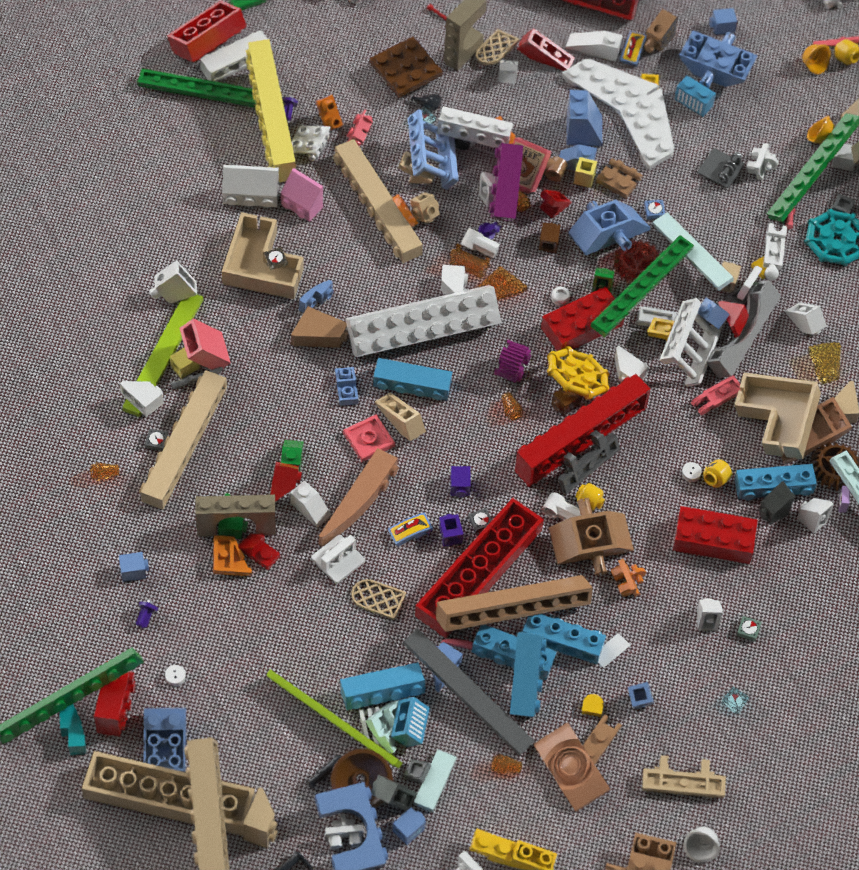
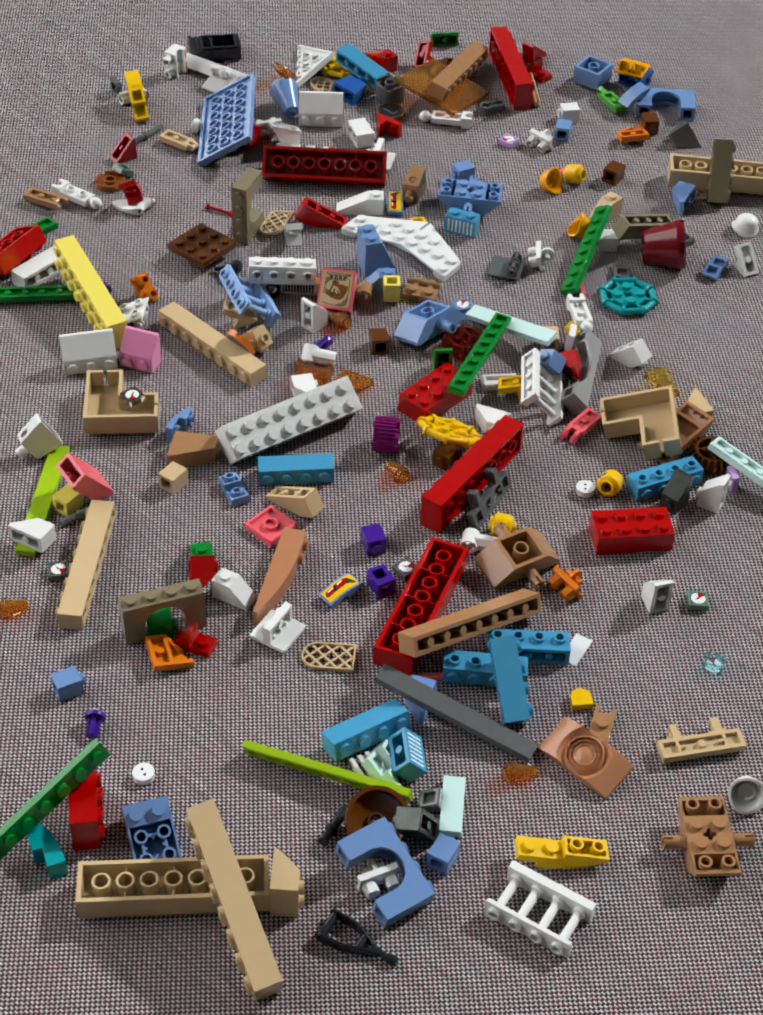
camera: 15 degrees left, 15 degrees down
(291, 359) = (173, 477): none -> tan brick
(361, 123) = (176, 294): coral hinge -> none
(507, 181) = (328, 298): magenta slope -> none
(553, 202) = (372, 316): red slope -> none
(560, 296) = (405, 381): white tile -> none
(641, 695) = (625, 676): medium blue brick -> none

